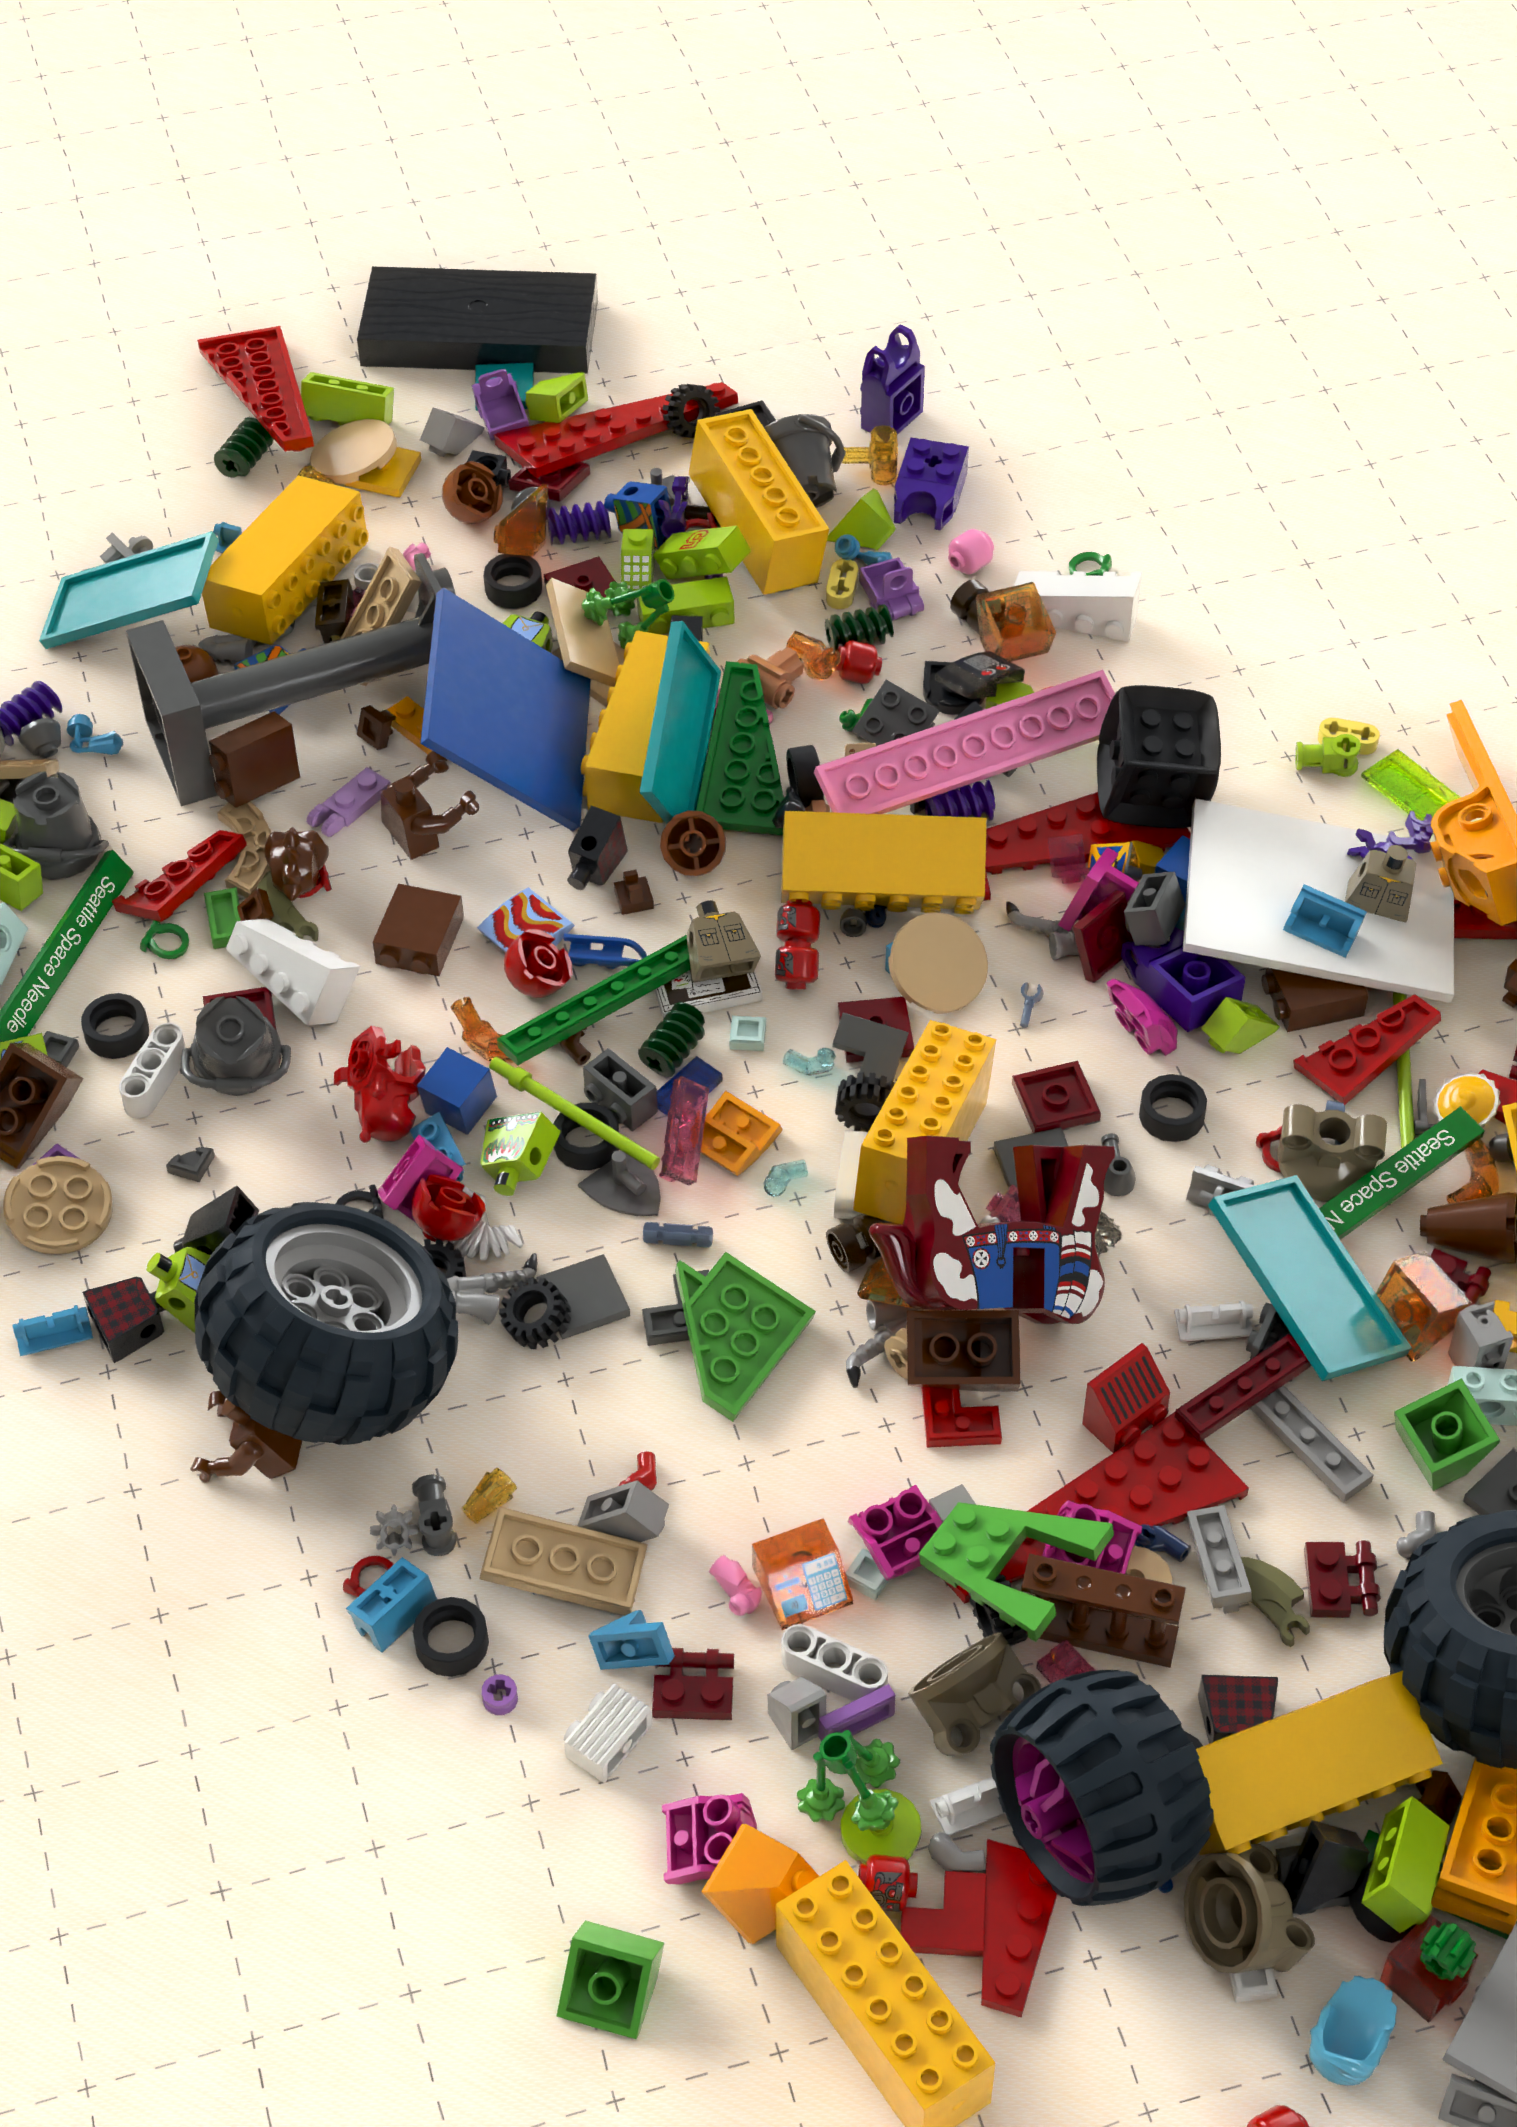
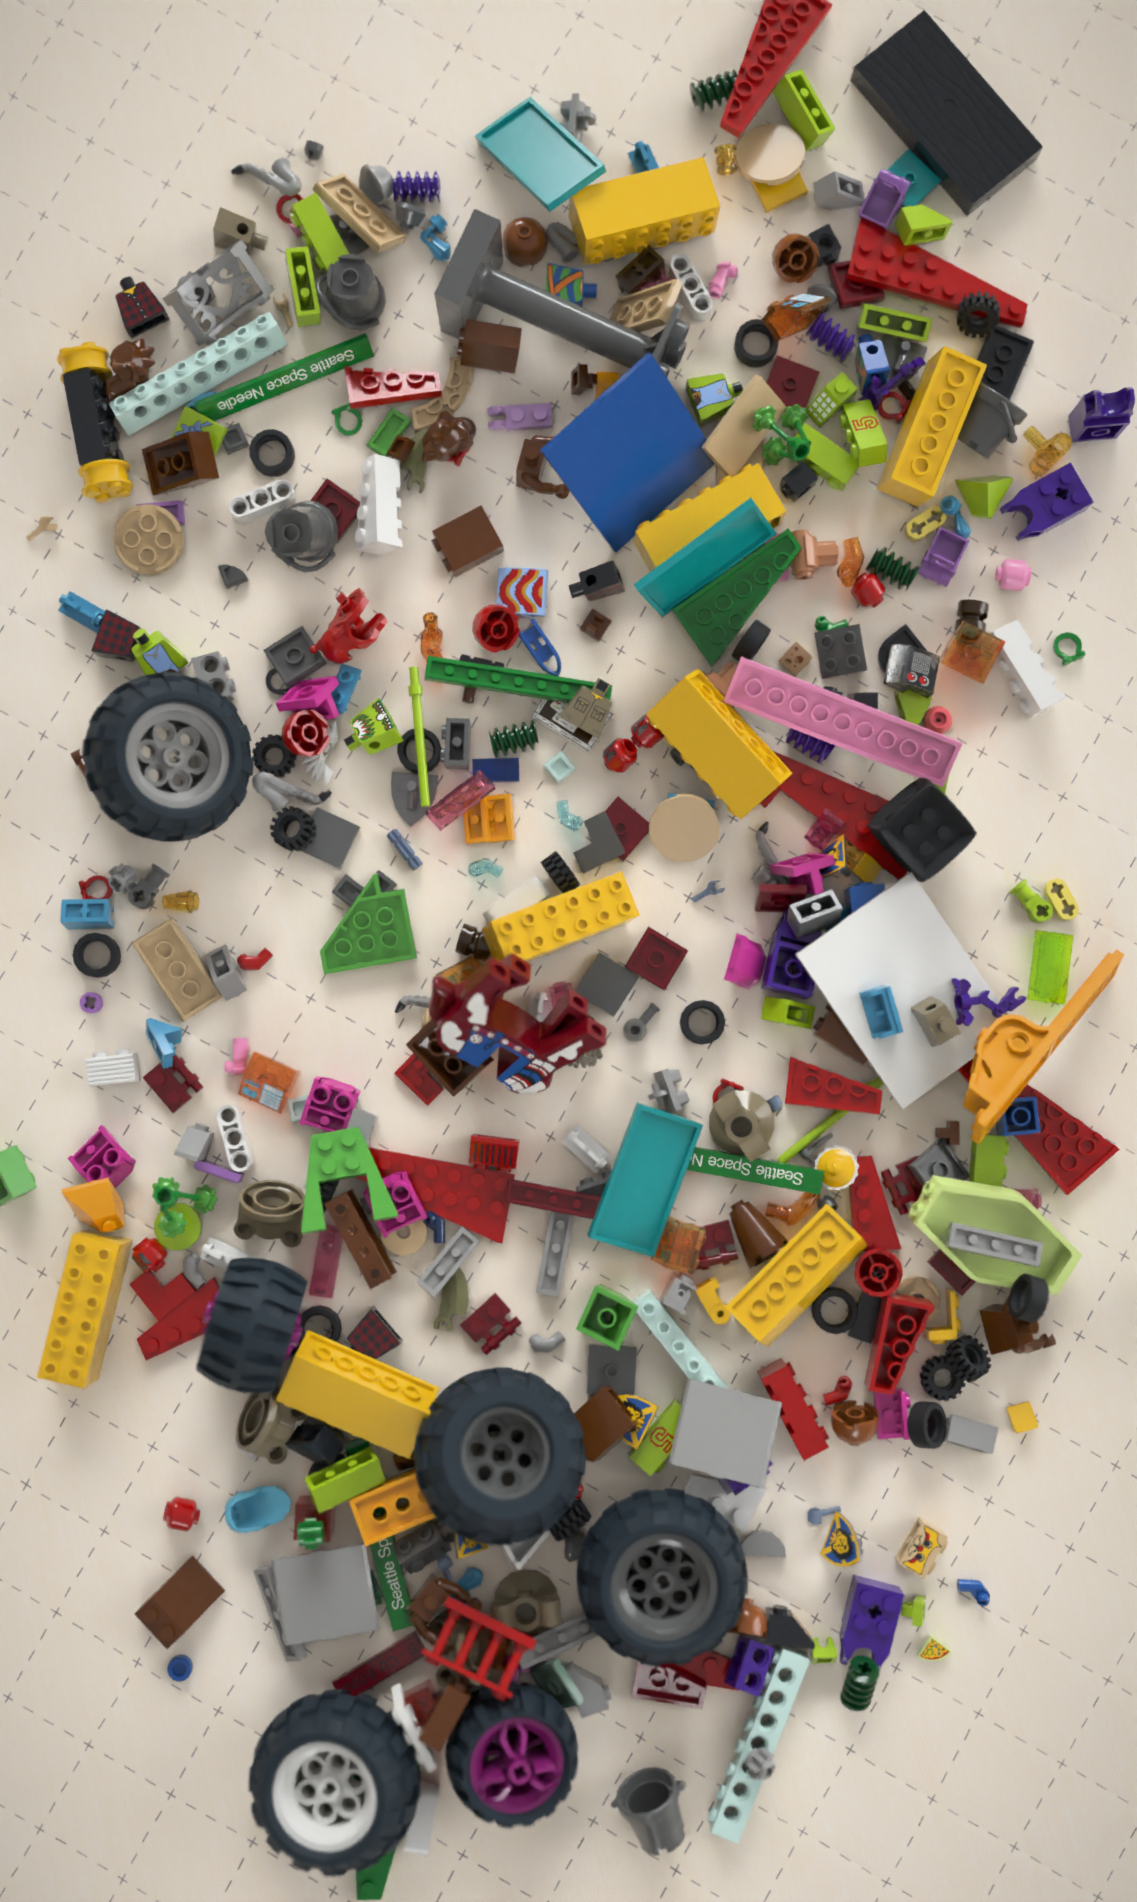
camera: 45 degrees right, 35 degrees up
(216, 1220) = (198, 636): black torso -> none
(349, 1170) = (293, 658): none -> dark grey tile
(457, 1090) = (382, 665): blue head -> none
(620, 467) = (894, 322): none -> lime brick
(693, 843) = (648, 629): dark orange cylinder -> none
(791, 802) = (716, 661): black piece -> none

